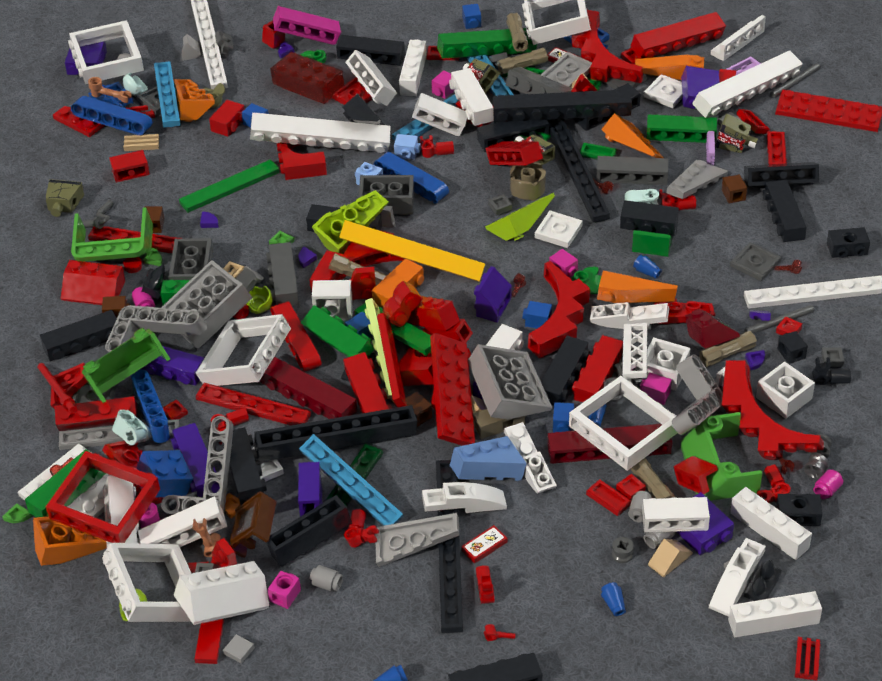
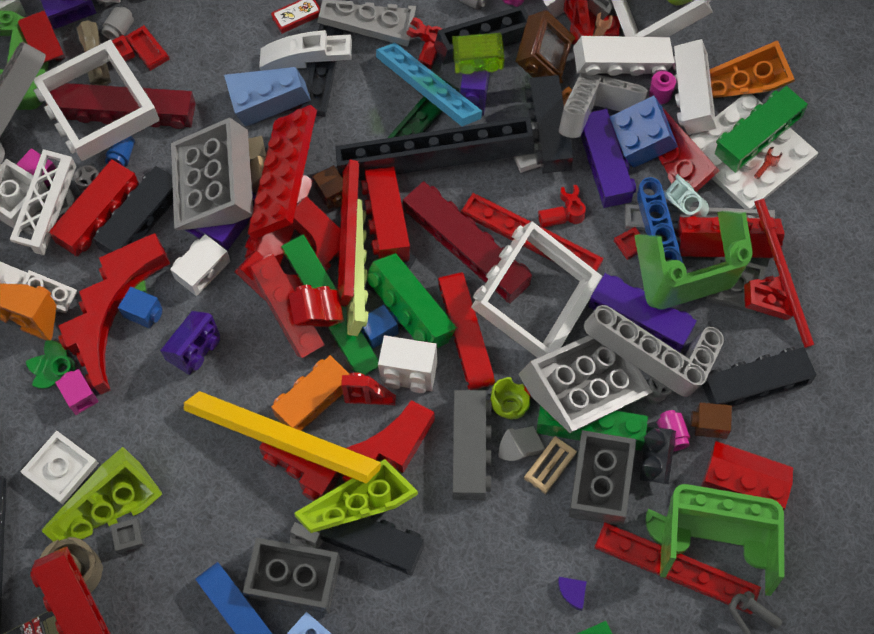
camera: 170 degrees left, 20 degrees up
(16, 513) = (815, 129): bright green tile -> none
(95, 526) = (731, 52): red window -> none
(157, 217) = (659, 600): reddish brown brick -> none
(281, 237) = (465, 529): bright green tile -> none
(306, 257) = (433, 483): dark purple tile -> none
(307, 478) = (478, 53): none -> clear neon green brick
(345, 266) = (382, 417): dark tan axle -> none
(520, 282) = (144, 378): clear red hand -> none
(536, 470) = (216, 89): white slope -> none
(561, 417) = (158, 146): blue brick -> none

